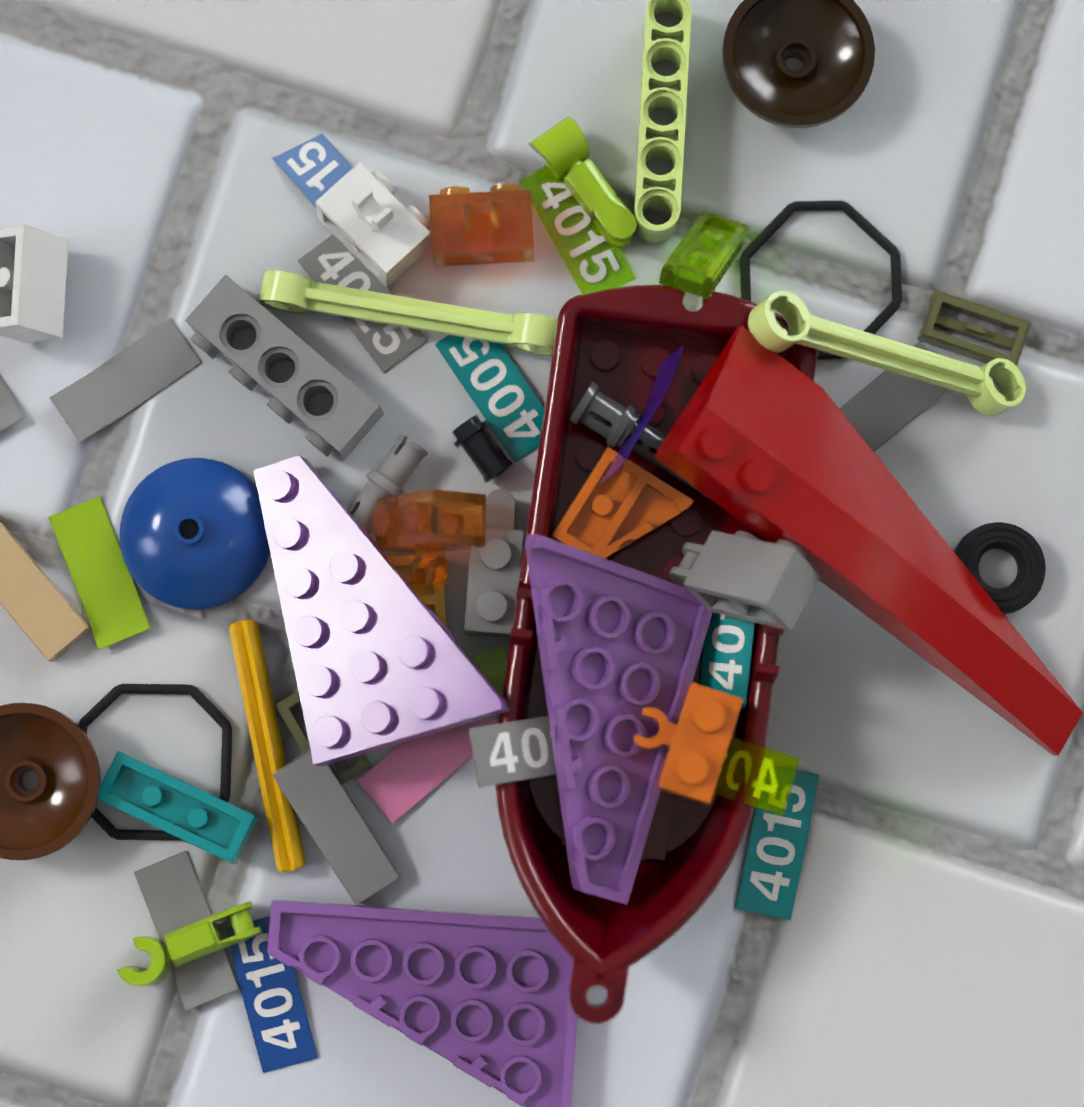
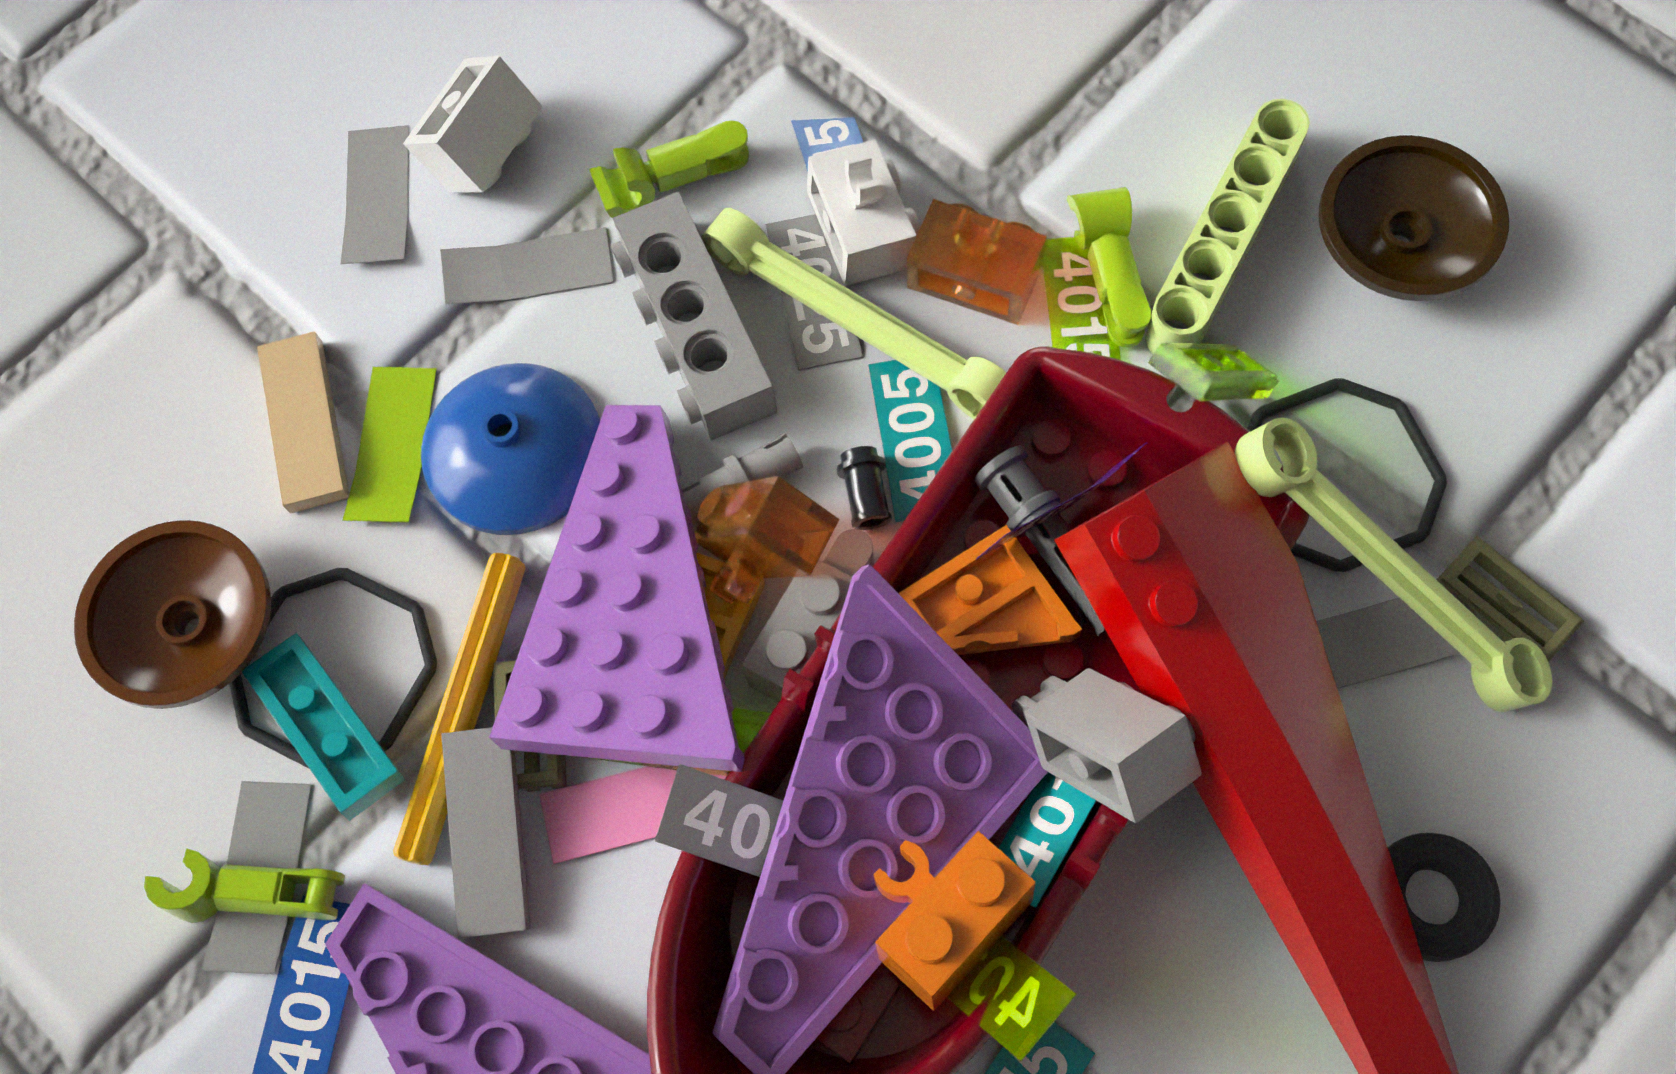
camera: 30 degrees right, 15 degrees down
(173, 275) = (670, 166): none -> lime piece

